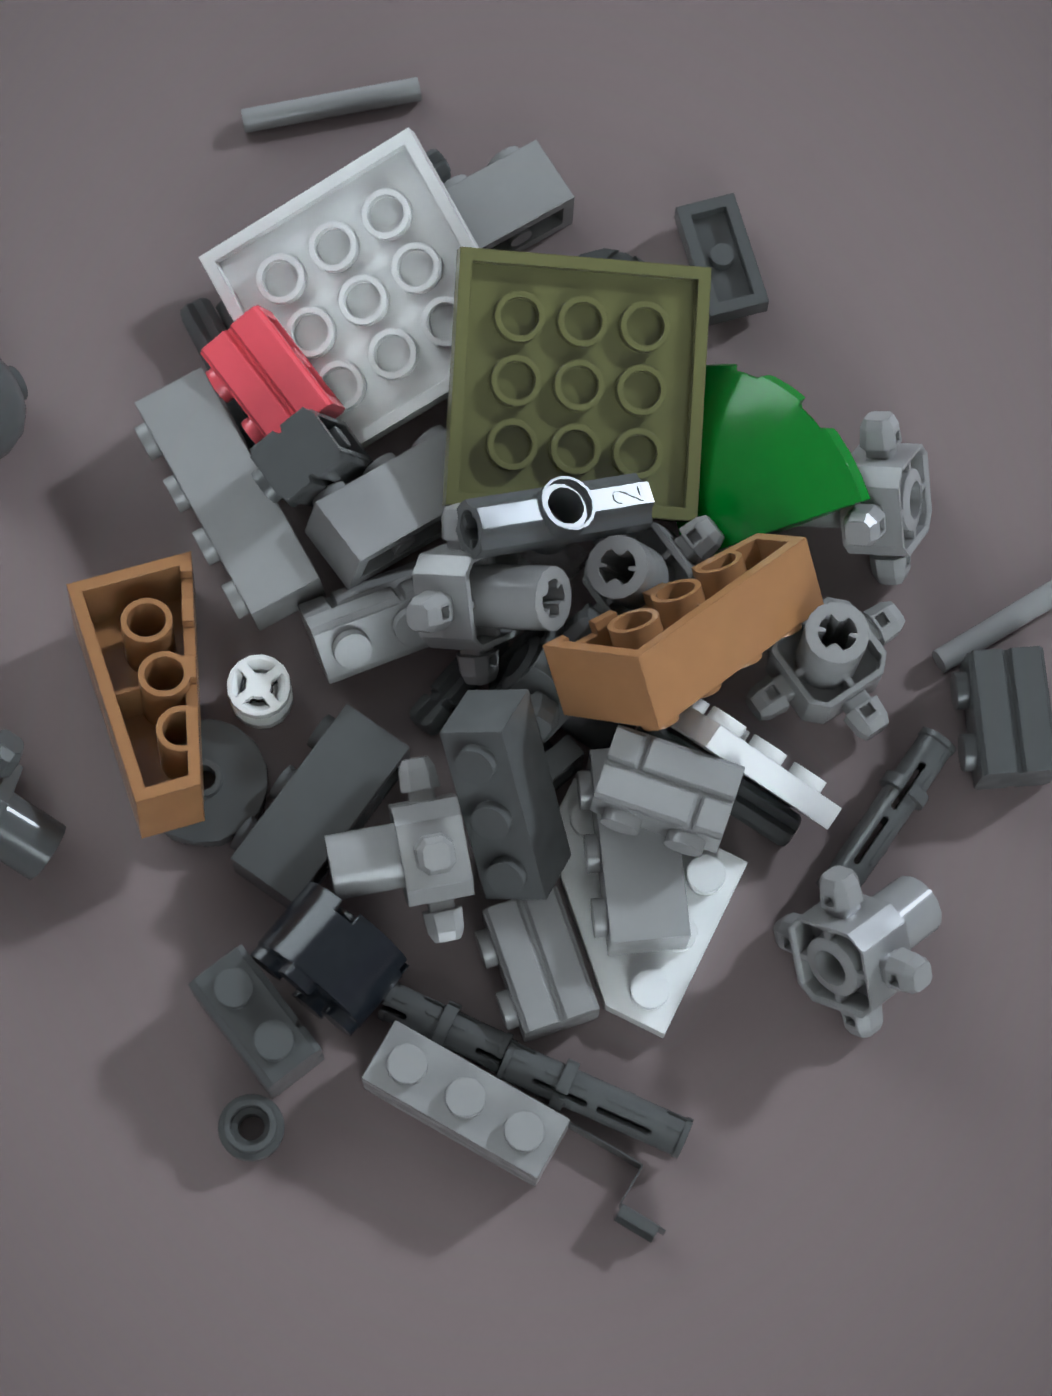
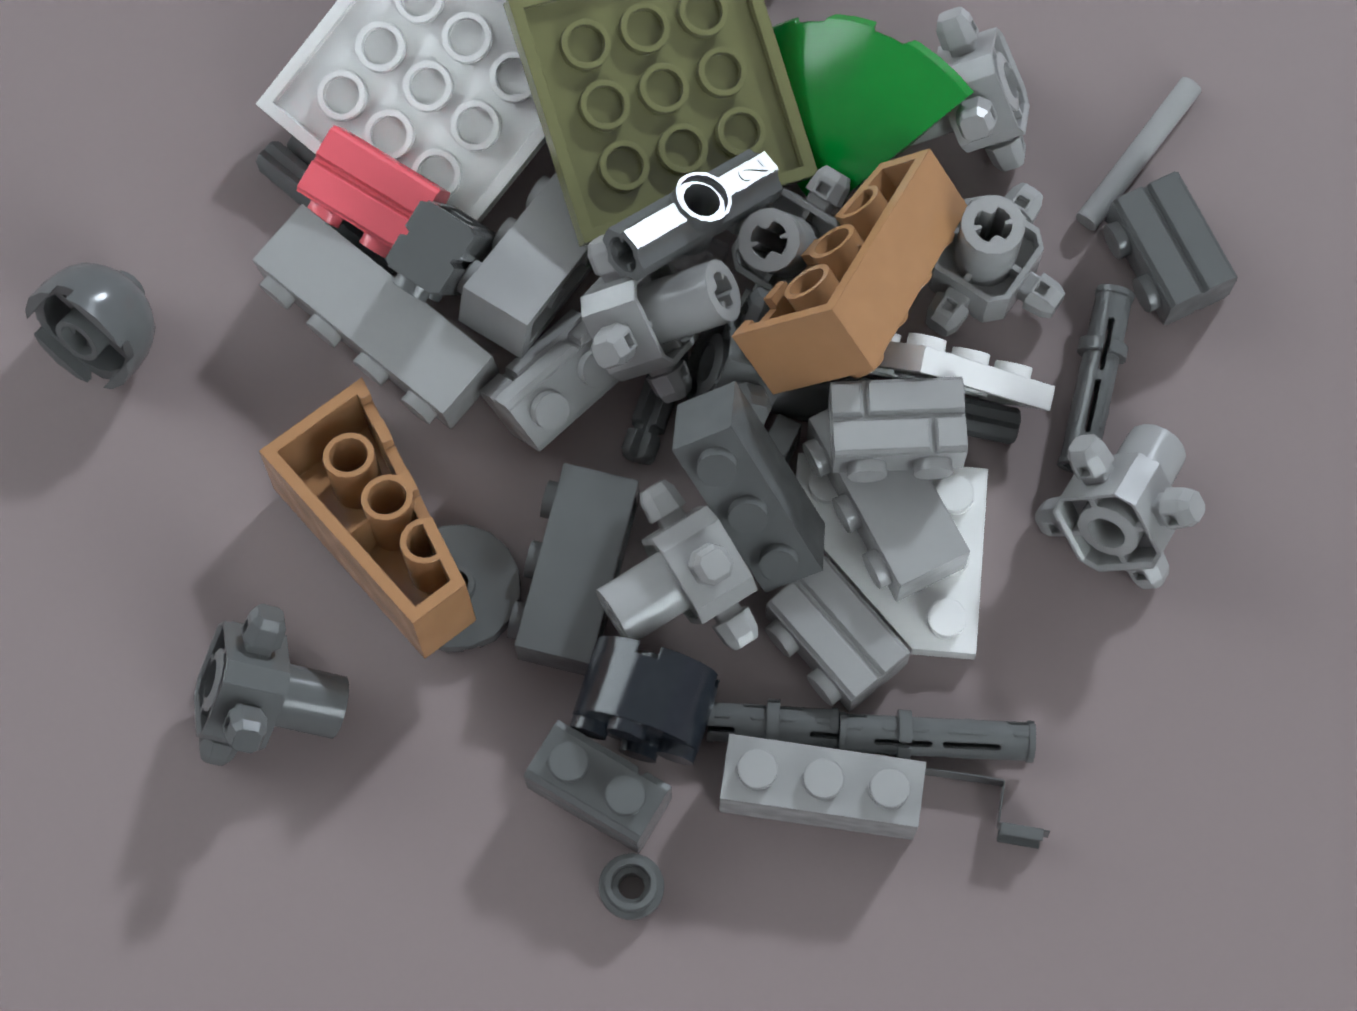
camera: 15 degrees left, 0 degrees up
(254, 680) = (471, 472): white wheel -> none

